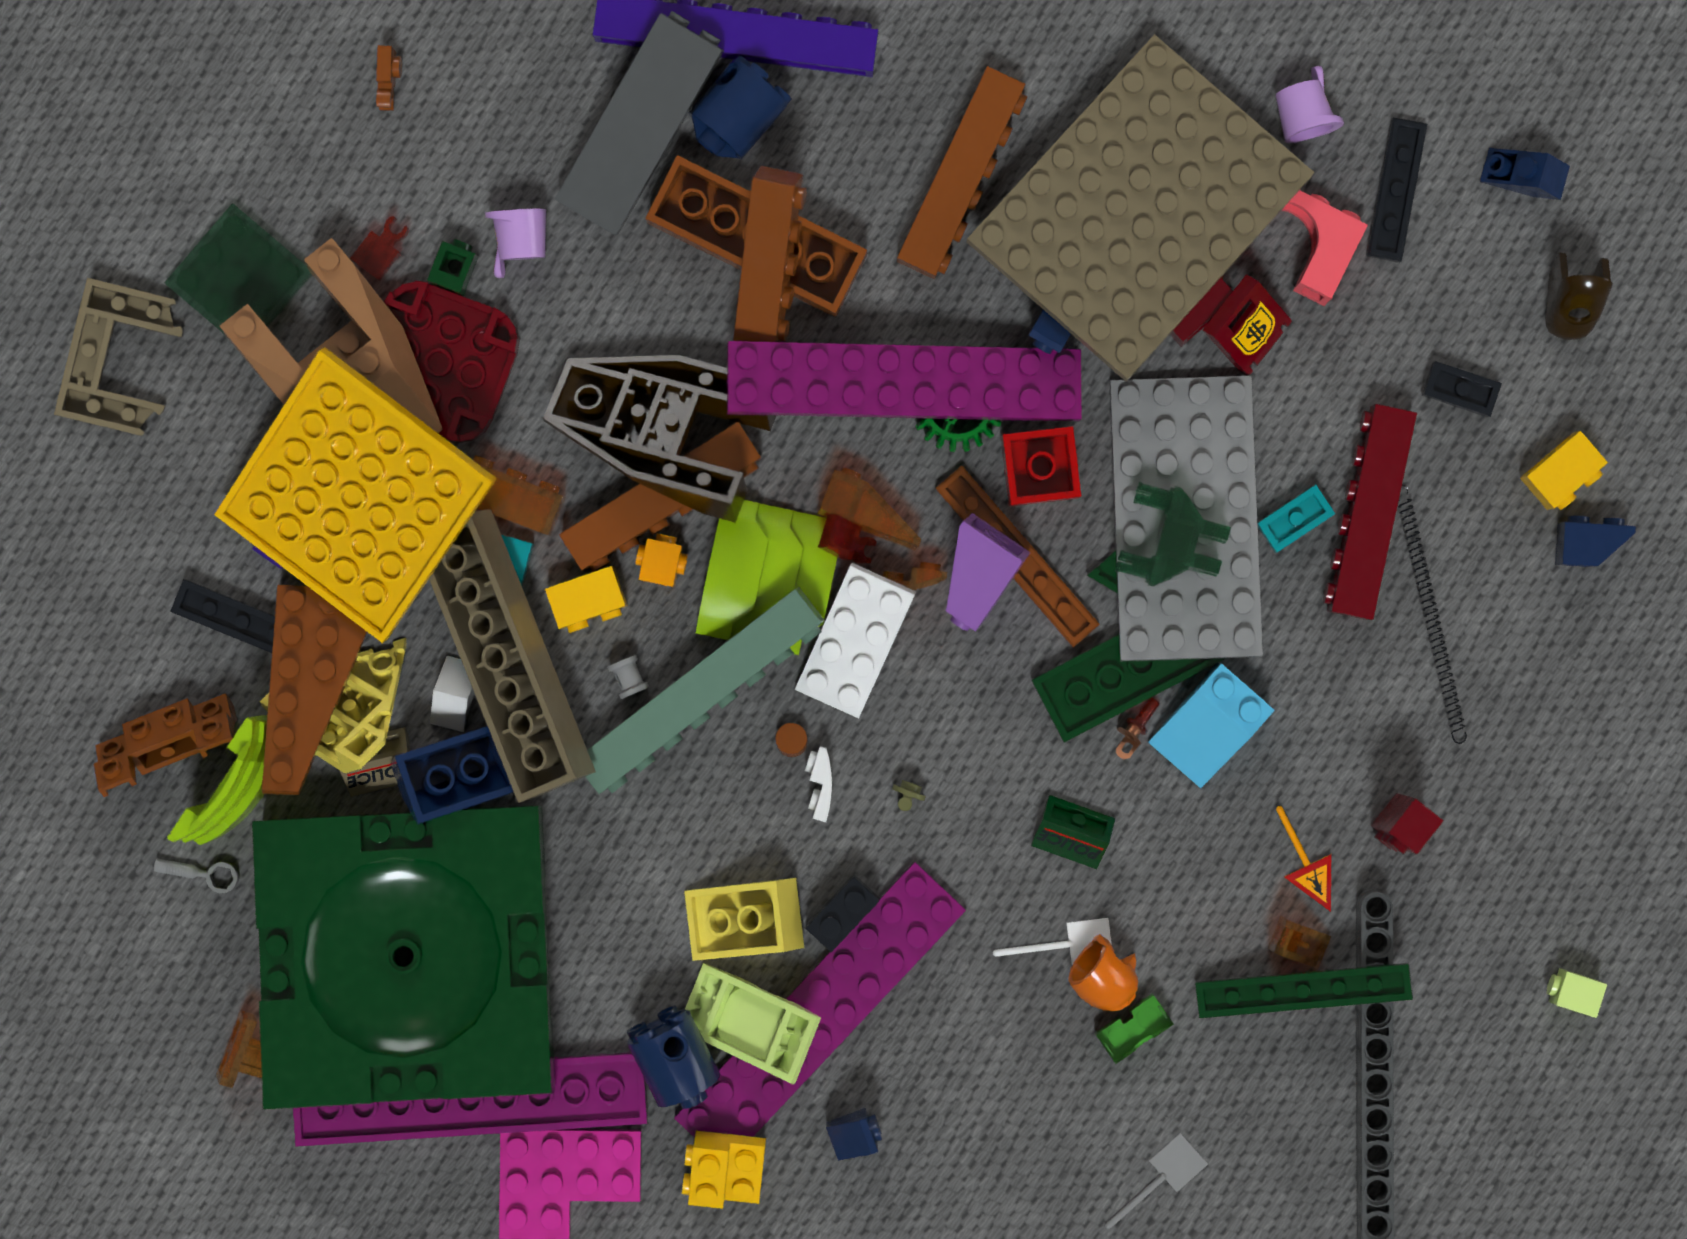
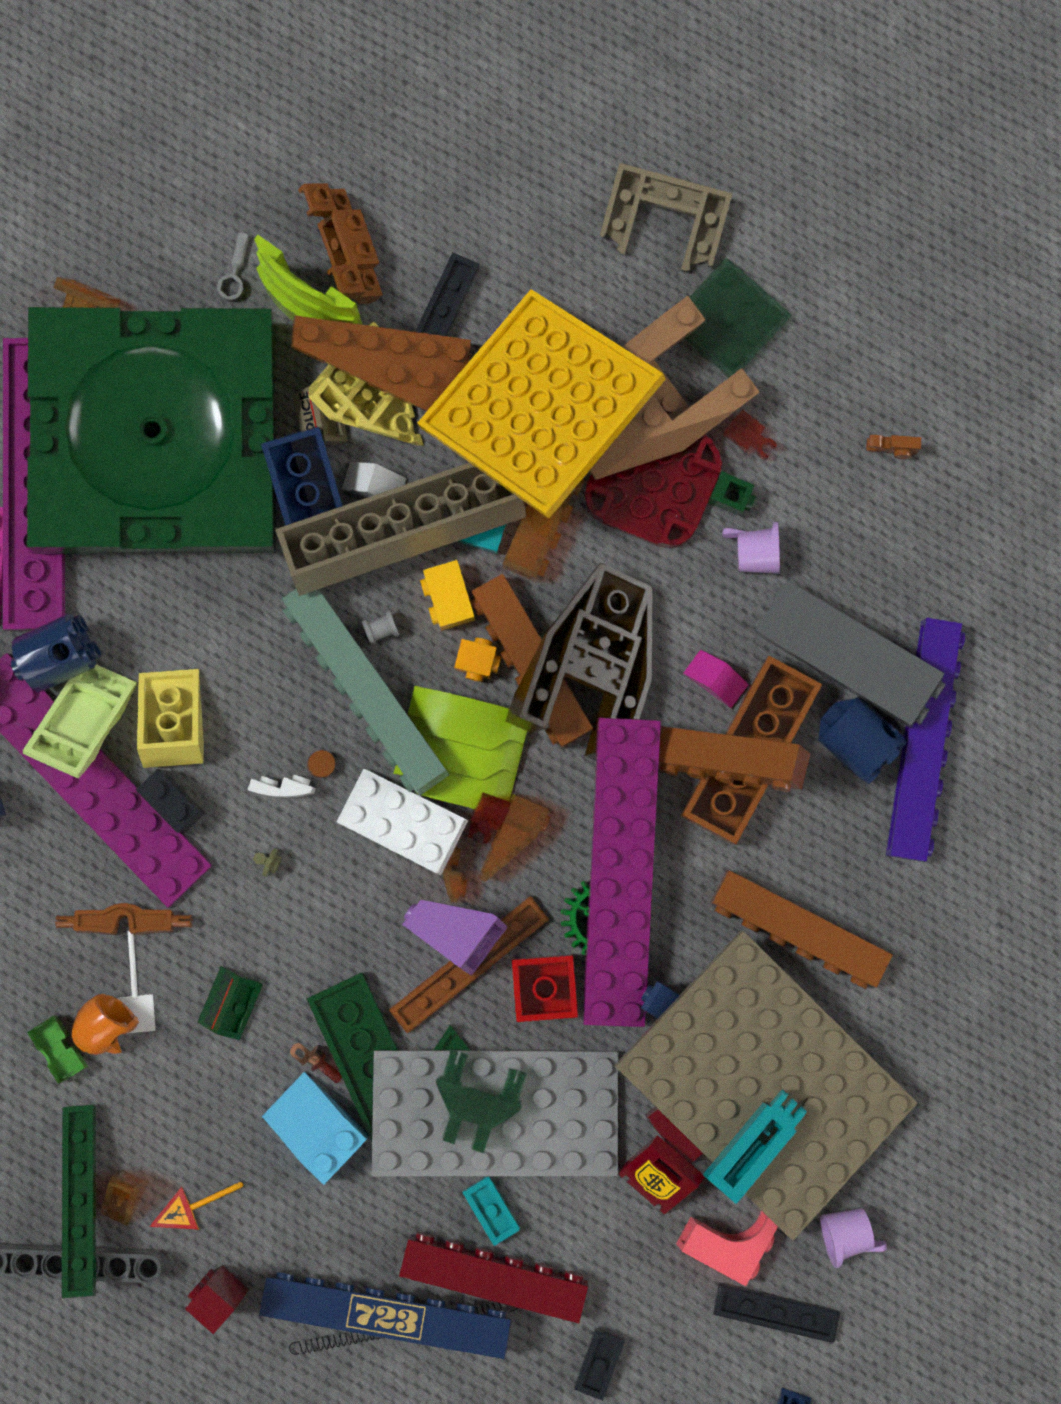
camera: 100 degrees right, 5 degrees down
(672, 280) = (716, 678): none -> dark pink slope
(982, 941) = (108, 920): none -> dark orange piece
(1220, 228) = (745, 1155): none -> teal hinge
(1419, 632) = (386, 1317): none -> dark blue brick

